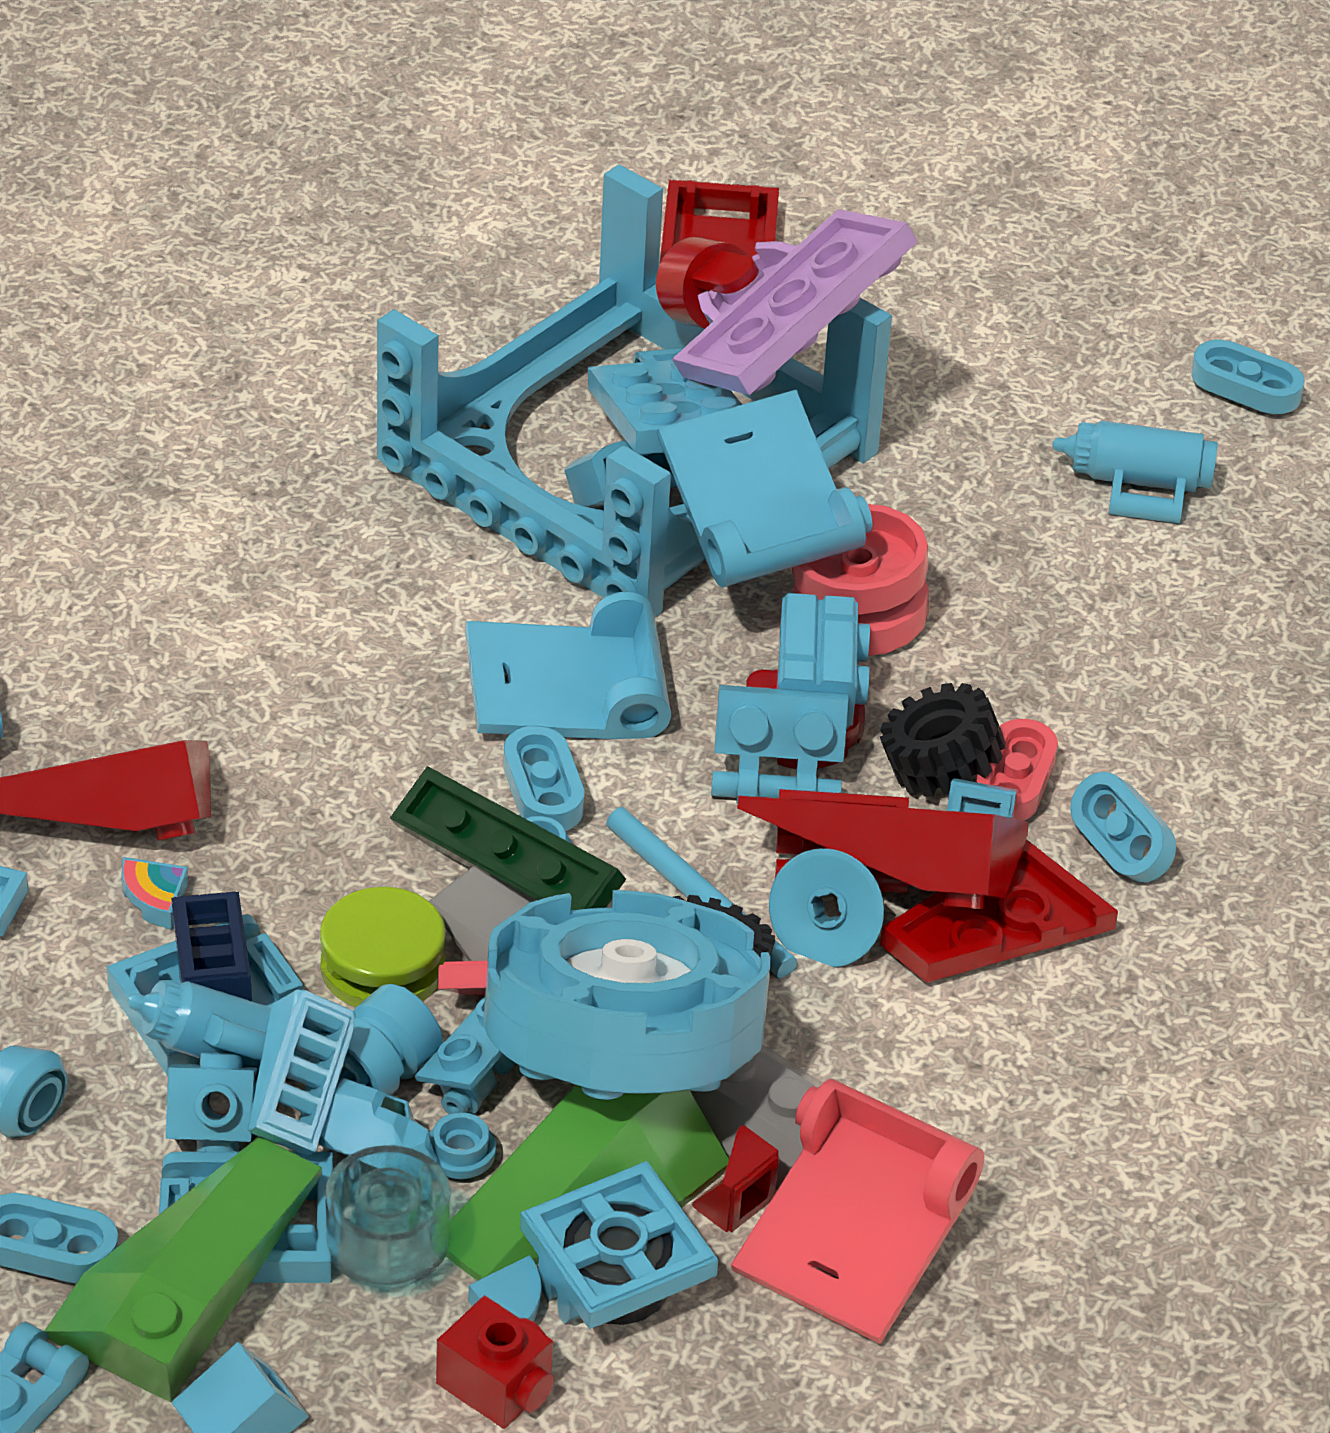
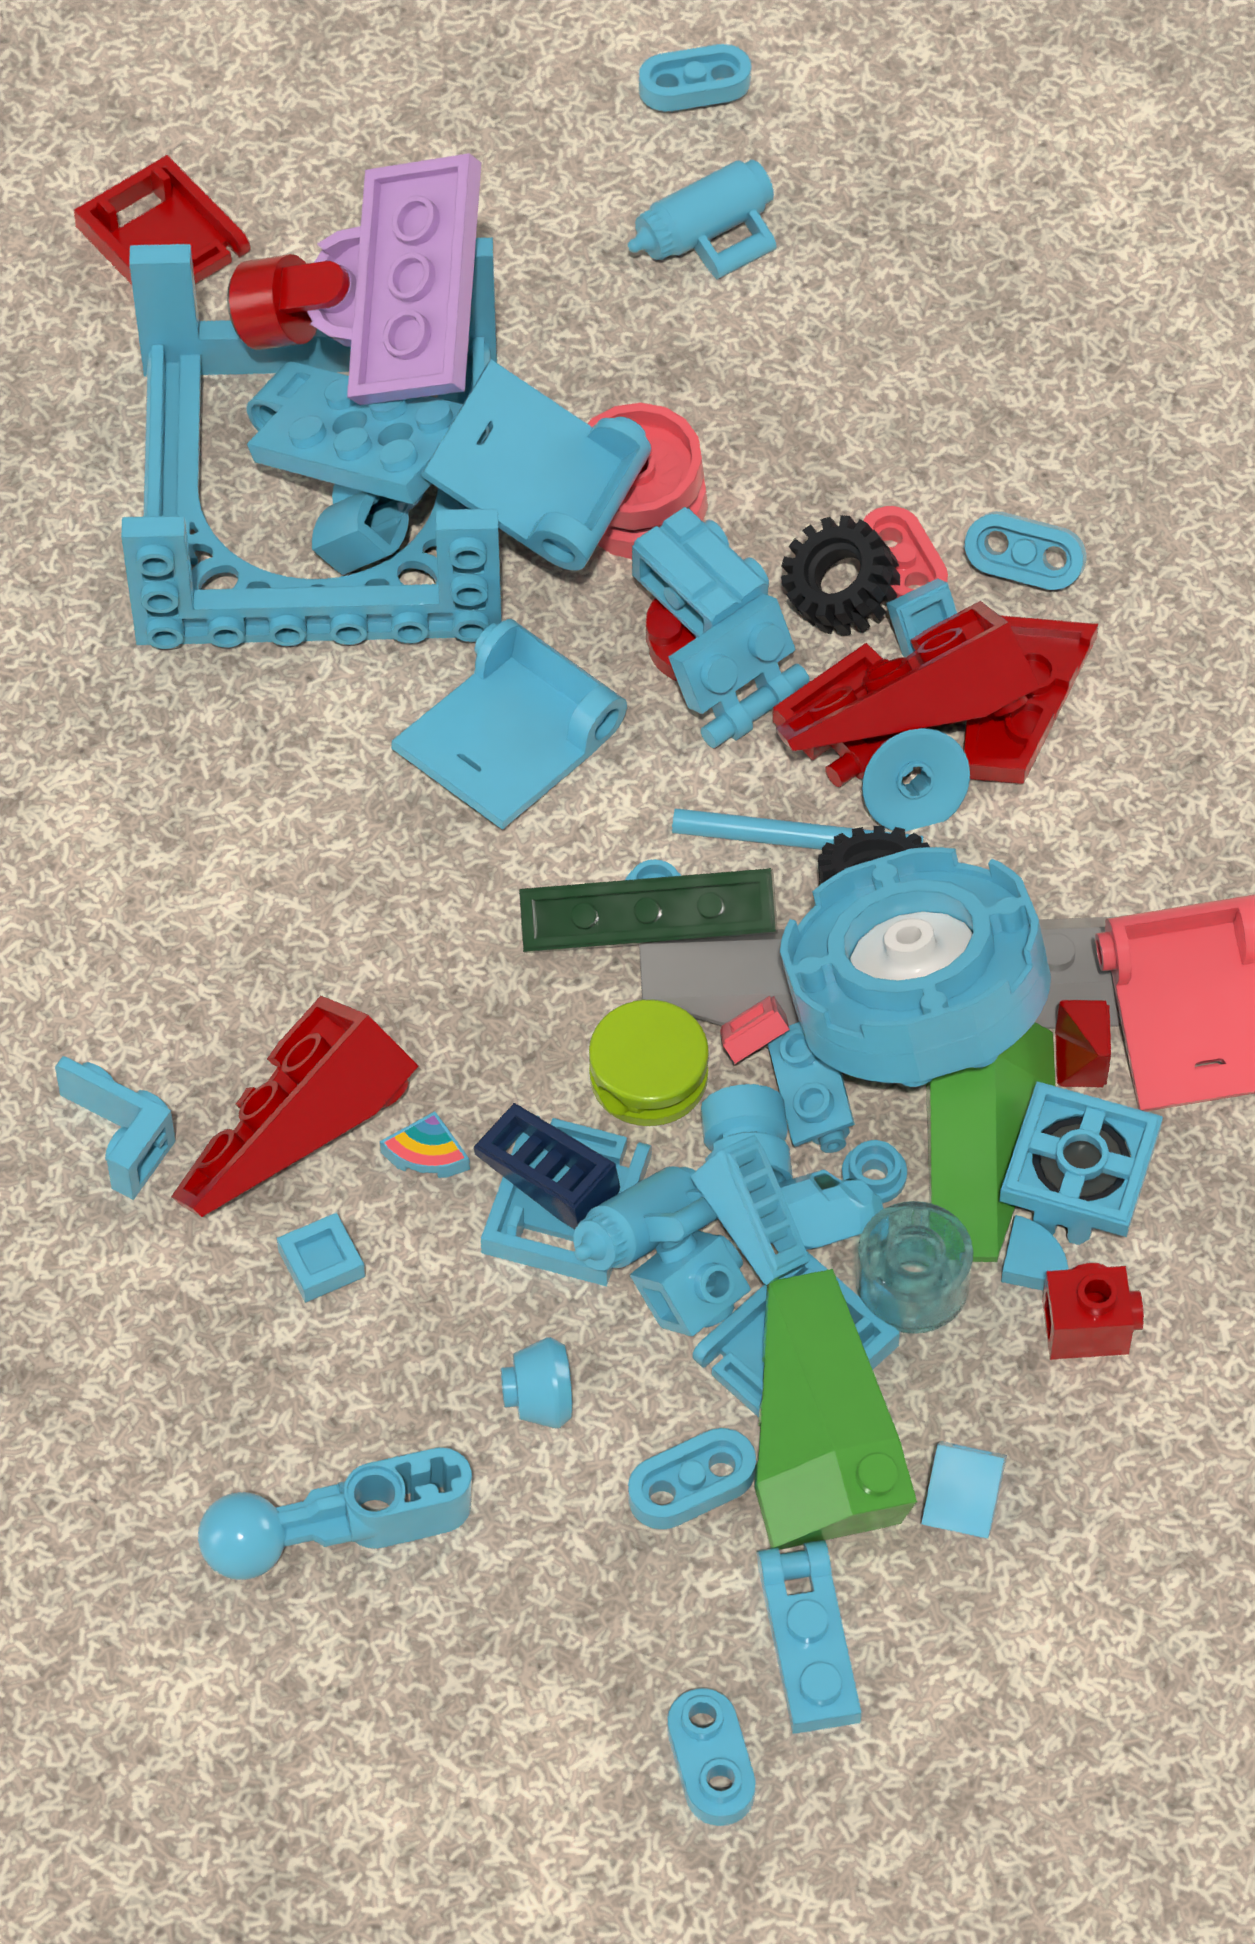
camera: 40 degrees left, 15 degrees up
(543, 775) = (600, 829): medium azure plate -> none

